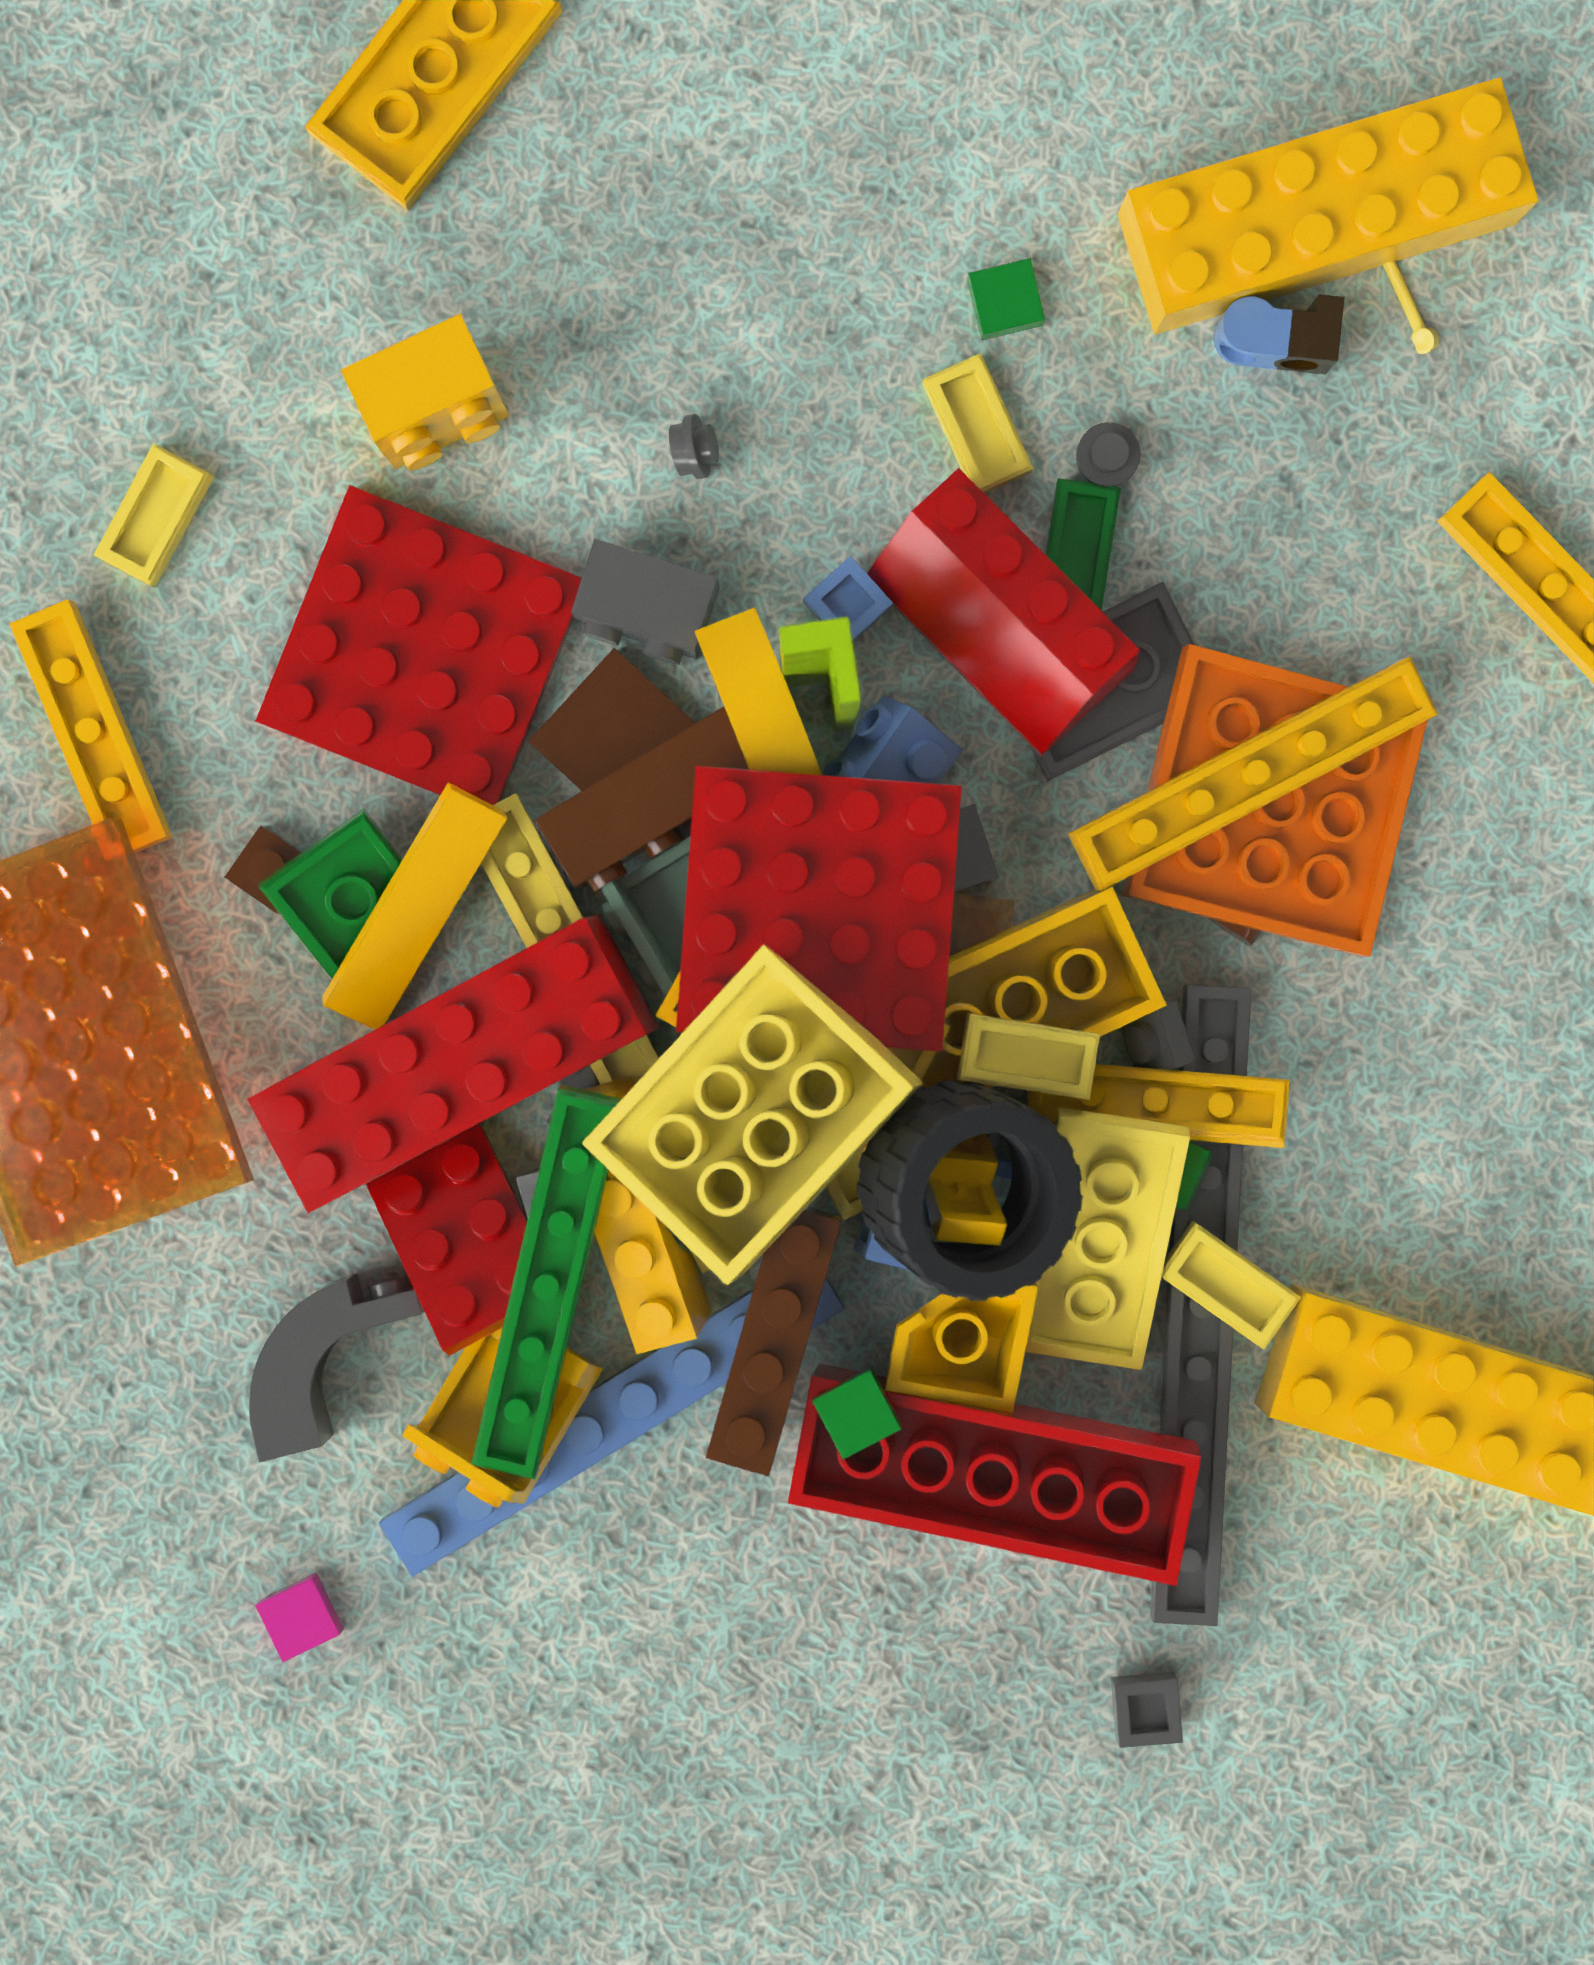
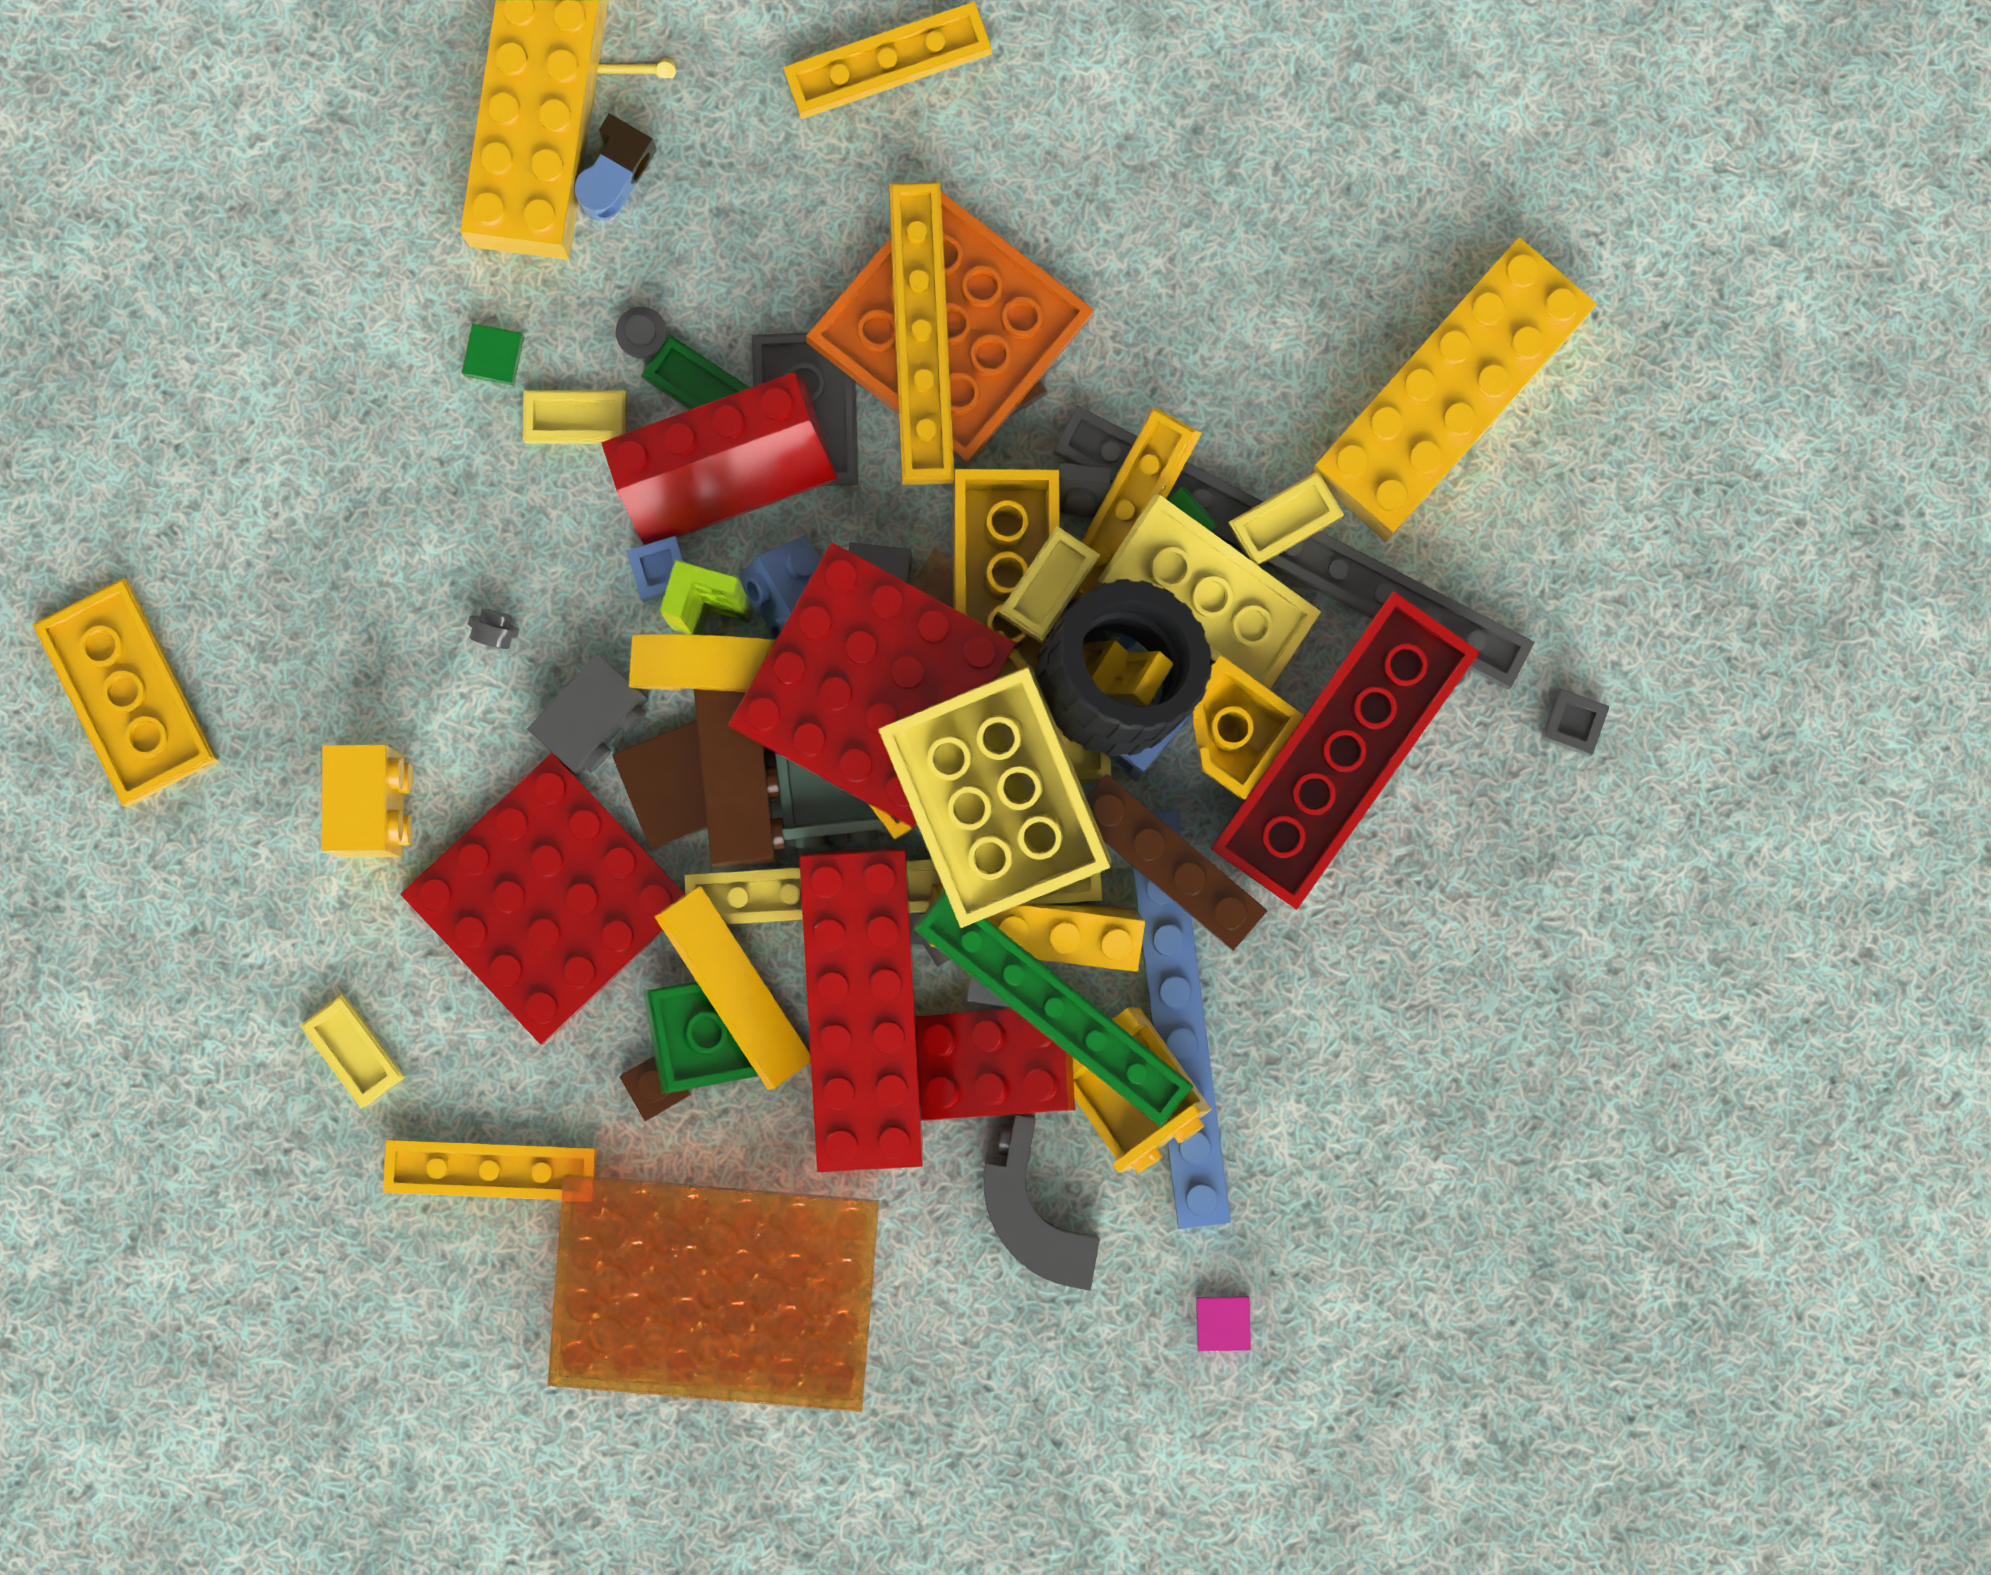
camera: 65 degrees left, 5 degrees down
(857, 1413) = (1251, 826): green tile -> none

